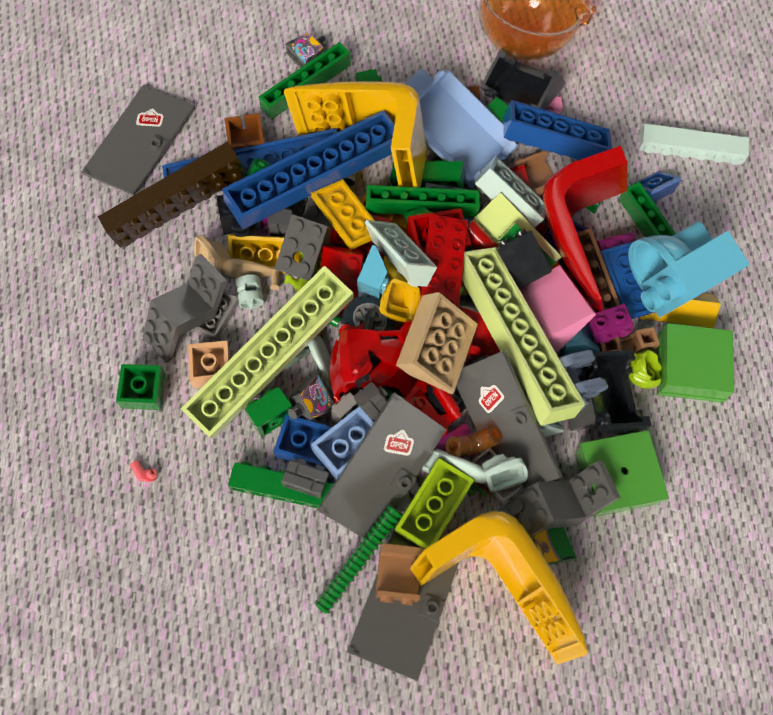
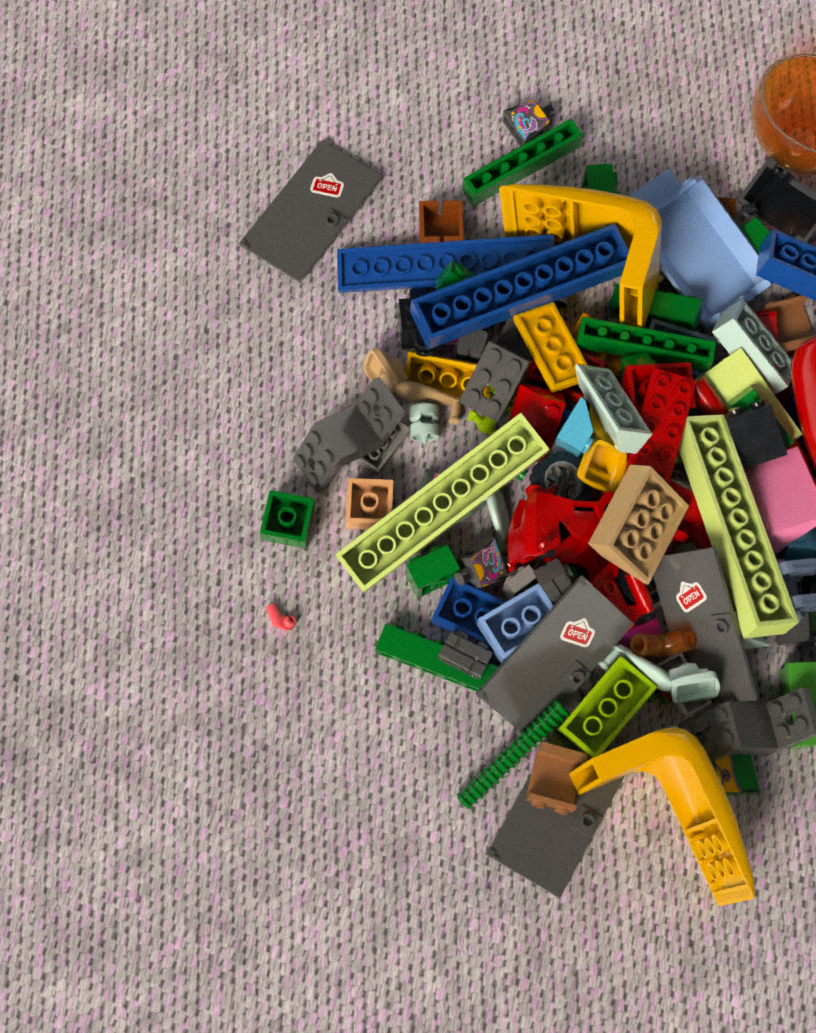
camera: 10 degrees right, 5 degrees up
(172, 195) = (349, 292): dark brown brick -> none

